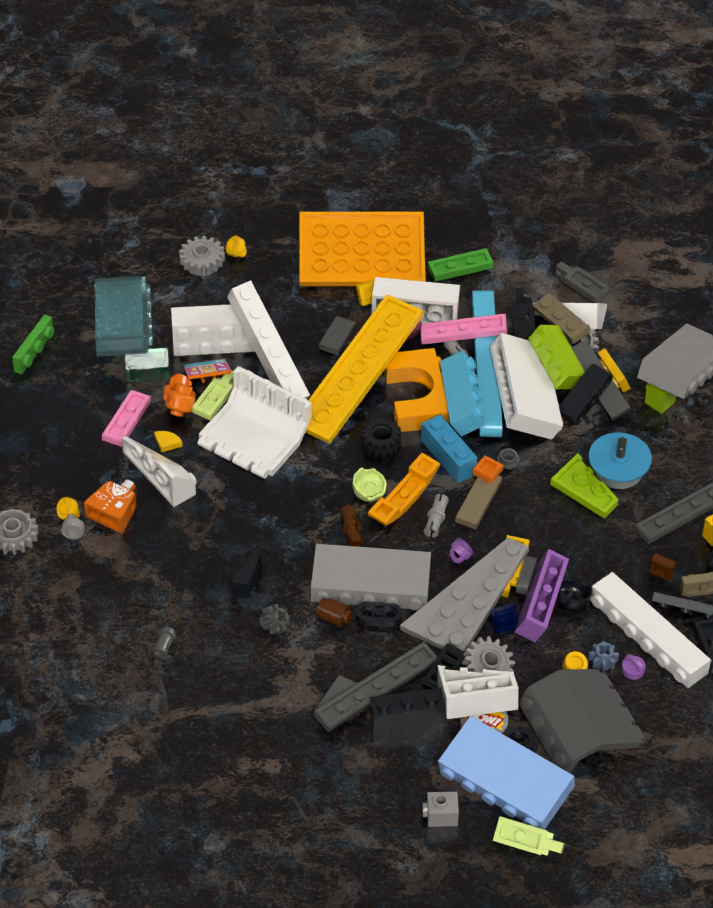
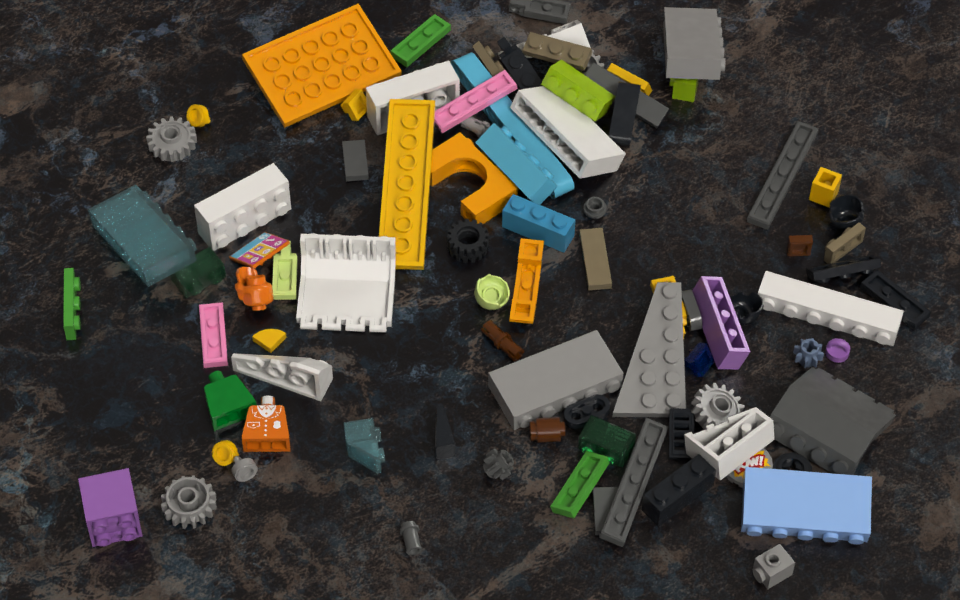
camera: 30 degrees left, 5 degrees up
(95, 469) = (227, 400): none -> green torso
(179, 552) = (362, 443): none -> clear light blue slope
(266, 339) = (309, 195): white brick -> none
(329, 667) = (580, 484): none -> bright green plate
(376, 643) = (607, 440): none -> clear green brick
(436, 515) = (569, 292): light grey pin -> none
(462, 549) = (617, 313): medium lavender tile -> none
(488, 469) = (586, 226): orange tile -> none
(504, 305) = (486, 56): none -> dark tan hinge
(526, 837) = (861, 554): yellowish green hinge -> none
(575, 660) = (790, 371): yellow tile -> none
(582, 485) = (675, 202): lime wing -> none
(619, 460) = (697, 162): dark azure piece -> none

